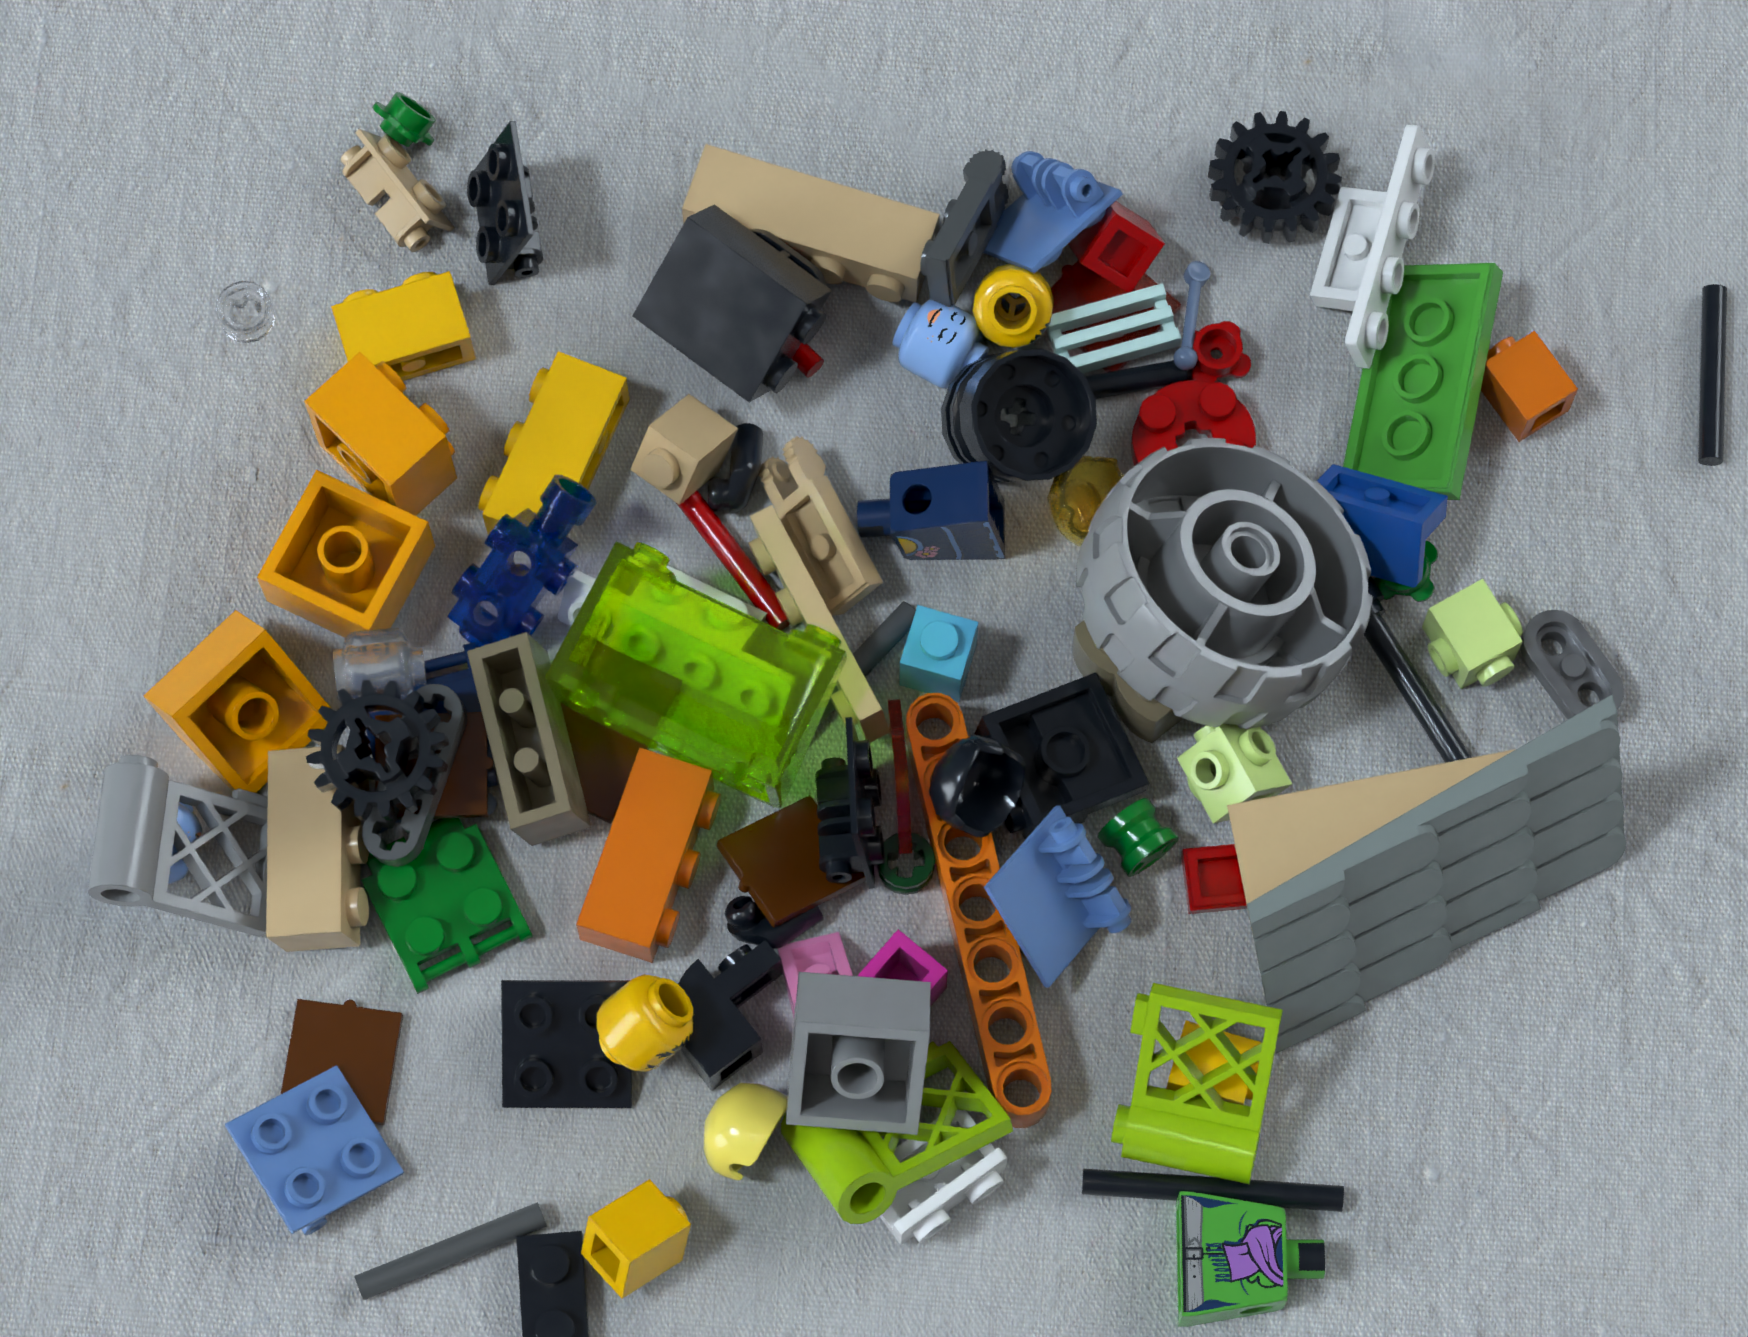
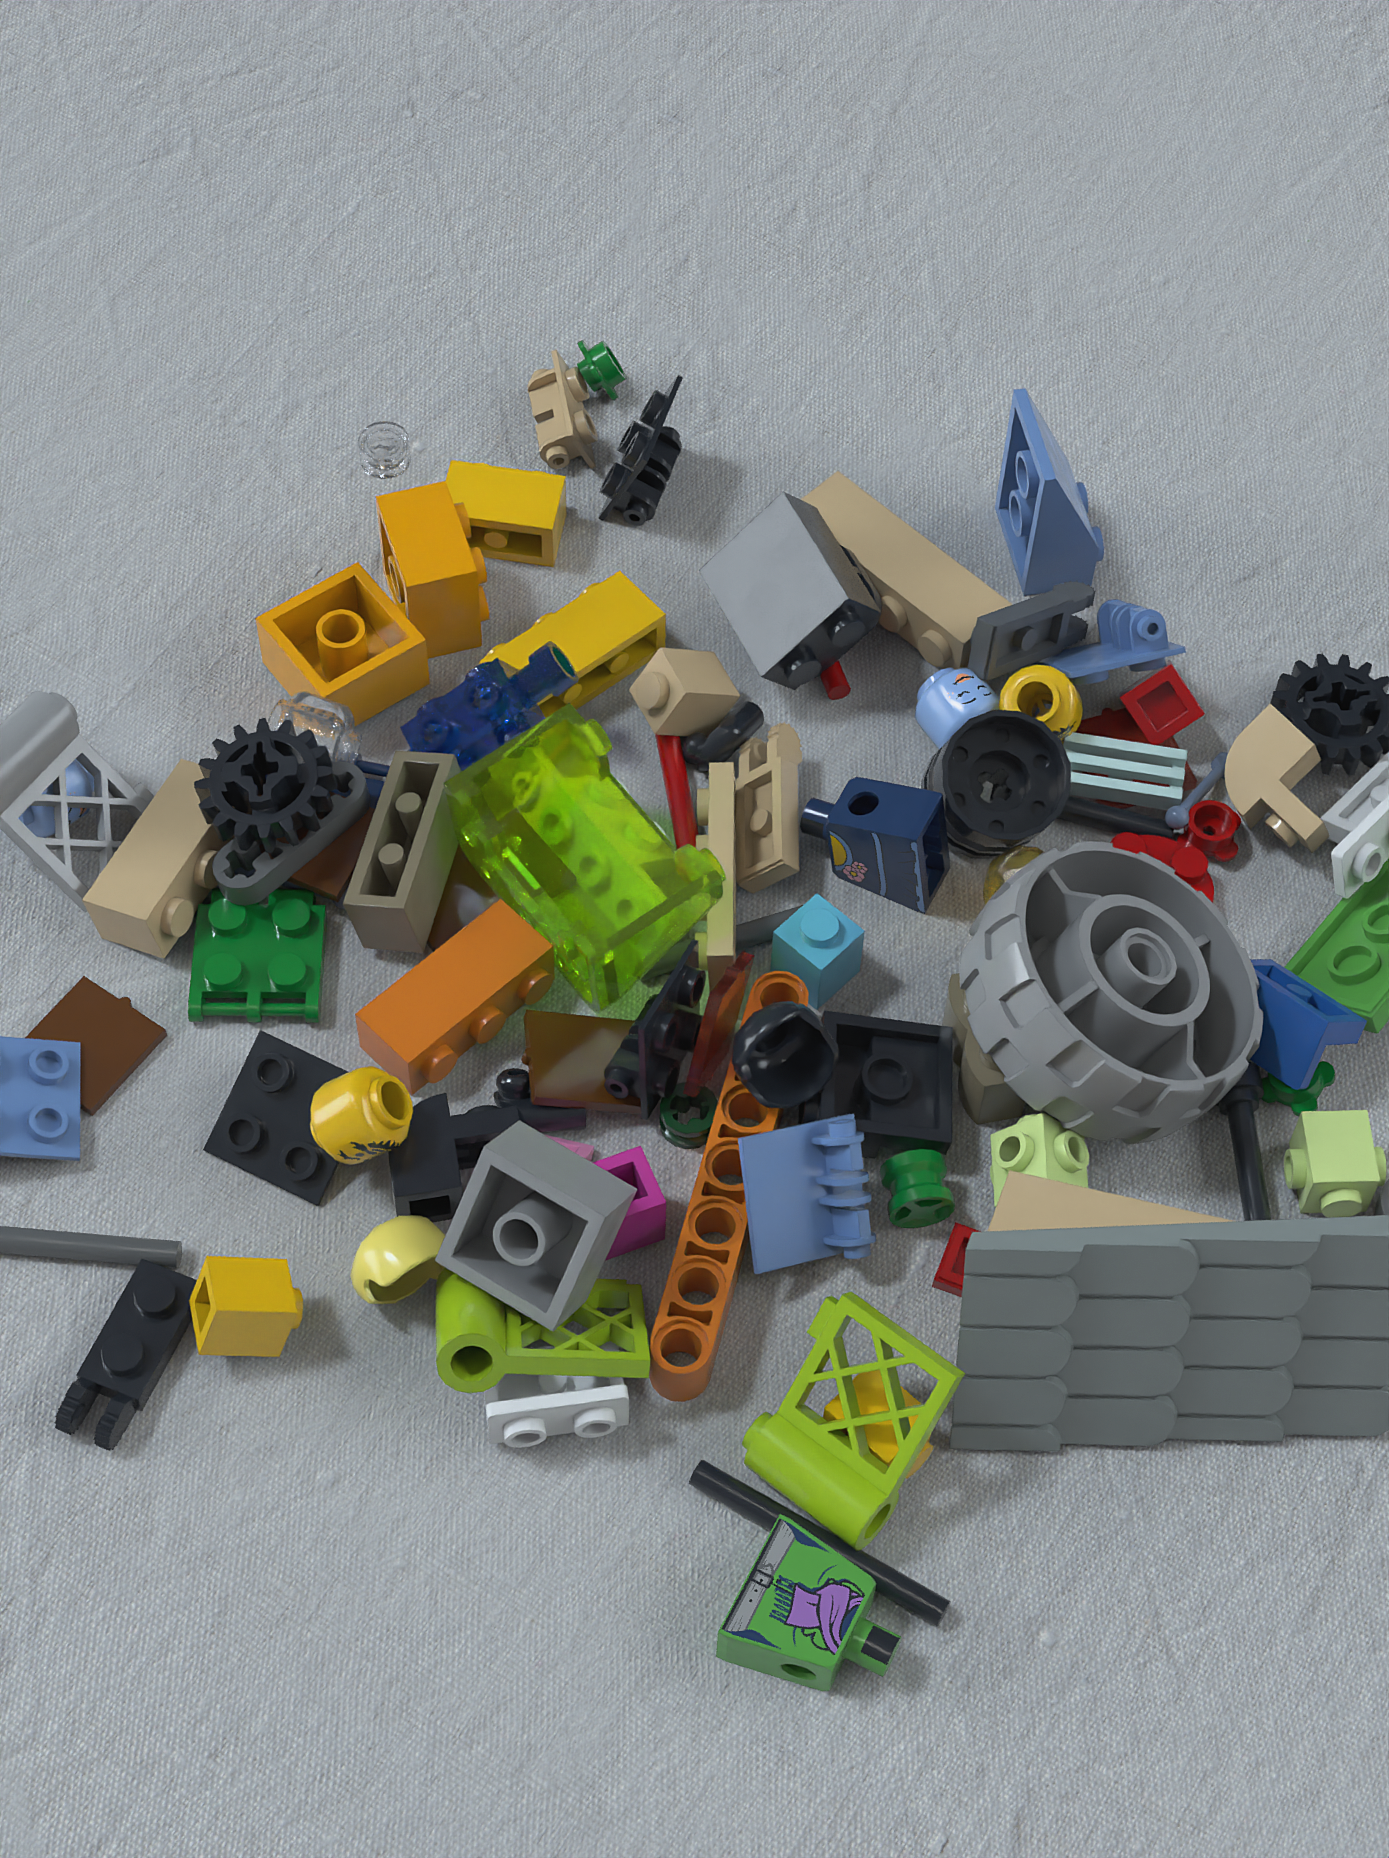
camera: 25 degrees right, 15 degrees down
(238, 702) = (179, 712): light orange slope -> none
(913, 89) = (1043, 506): none -> medium blue slope
(1239, 280) = (1263, 769): none -> tan brick

